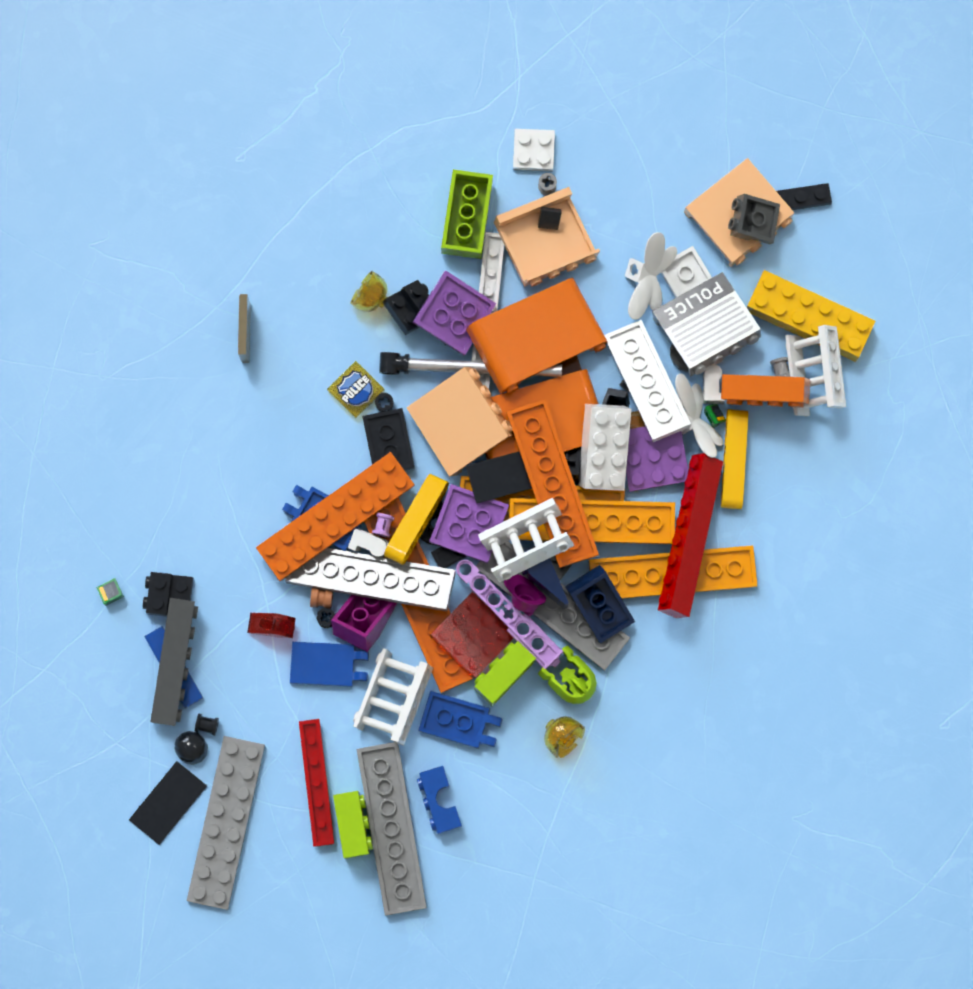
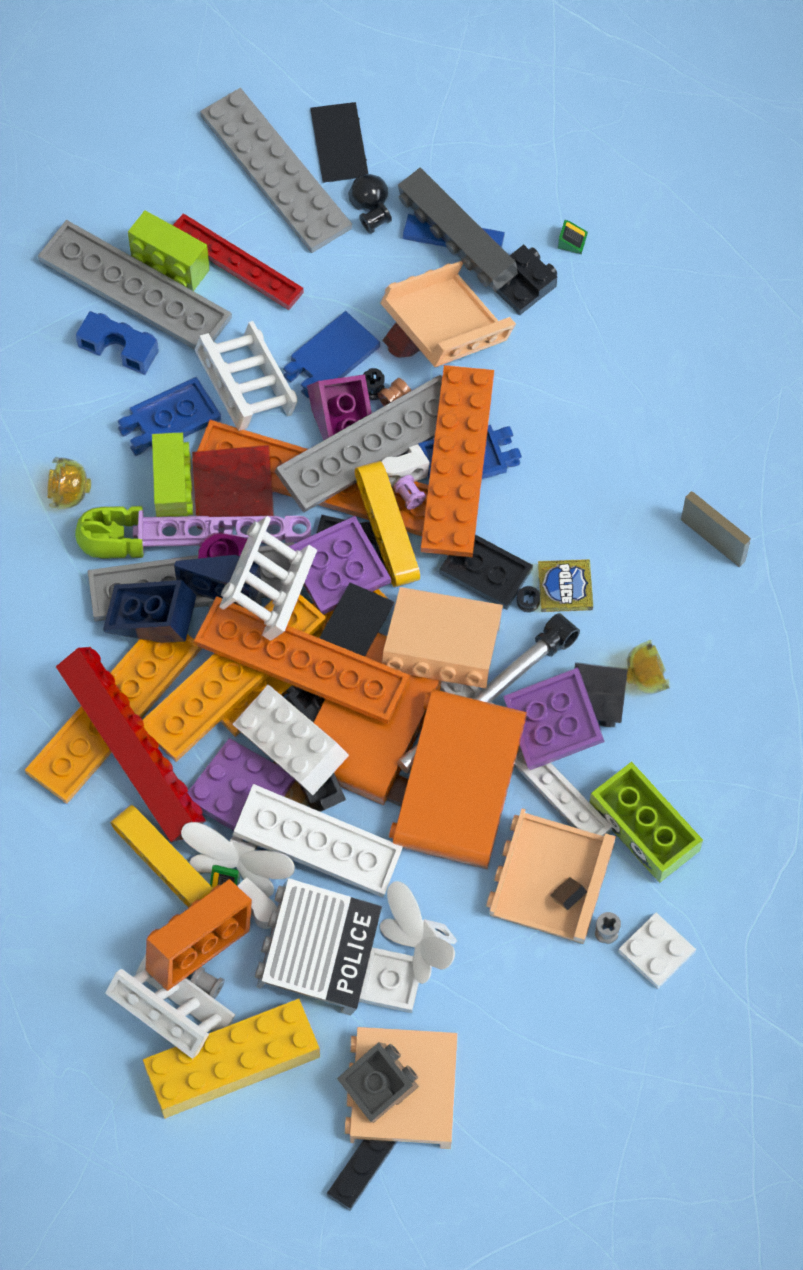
camera: 135 degrees right, 15 degrees down
(244, 611) = (444, 315): none -> light nougat panel

